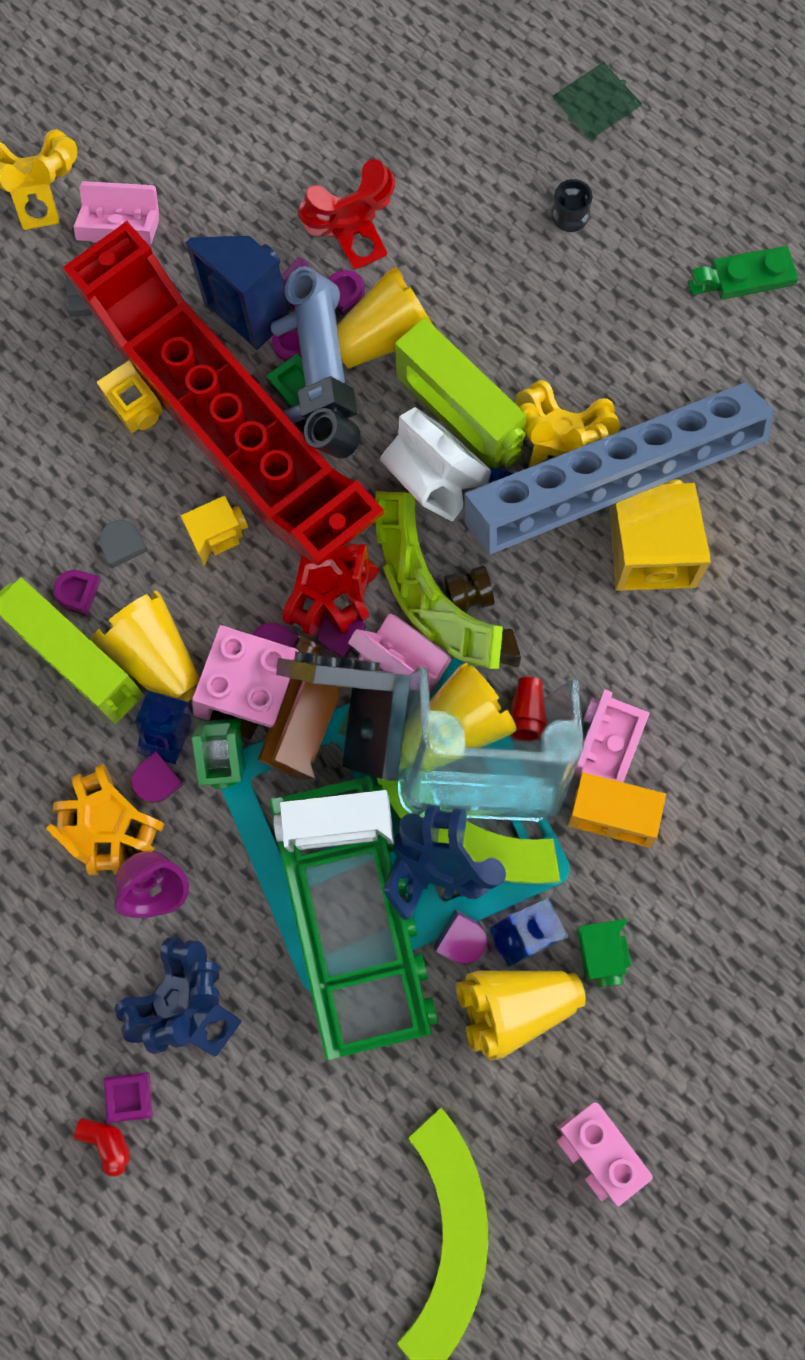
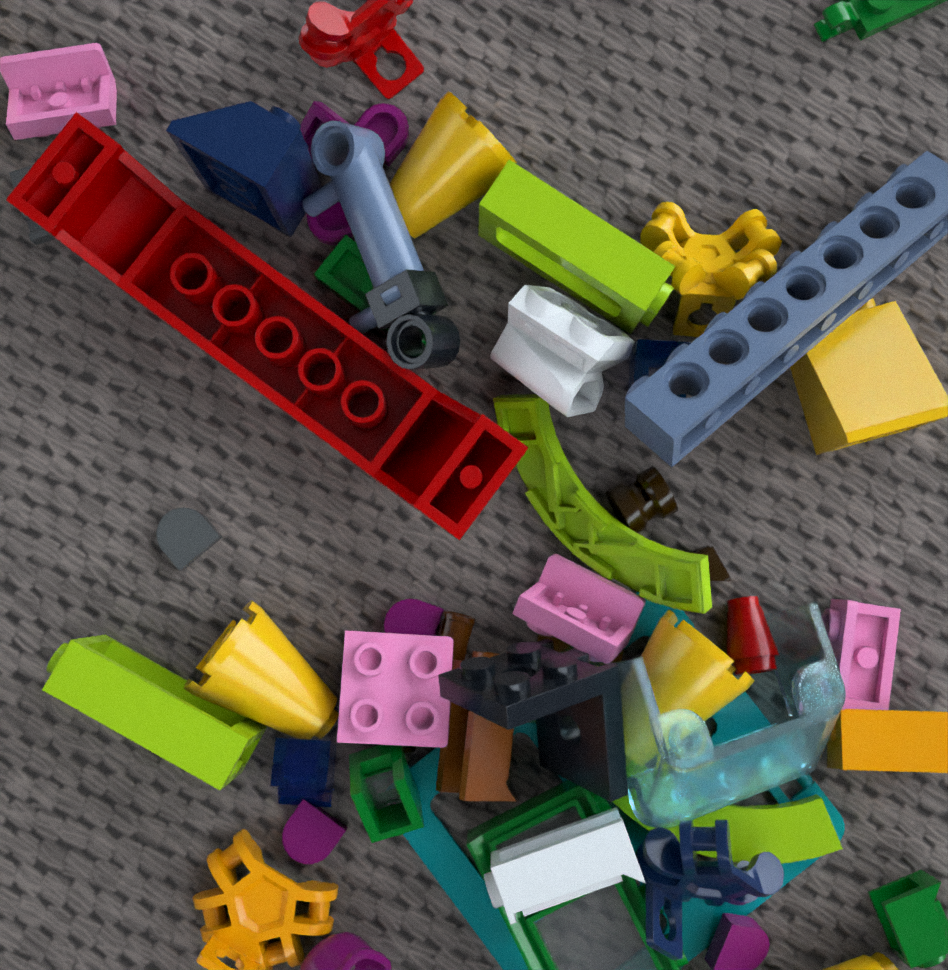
camera: 20 degrees left, 10 degrees up
(76, 590) = (145, 613): magenta tile -> none
(130, 398) = (146, 343): yellow window -> none
(214, 527) = (300, 493): yellow window -> none
(333, 640) = (491, 590): magenta tile -> none
(342, 573) = (487, 532): red piece -> none
(528, 932) = (816, 916): clear blue bracket -> none

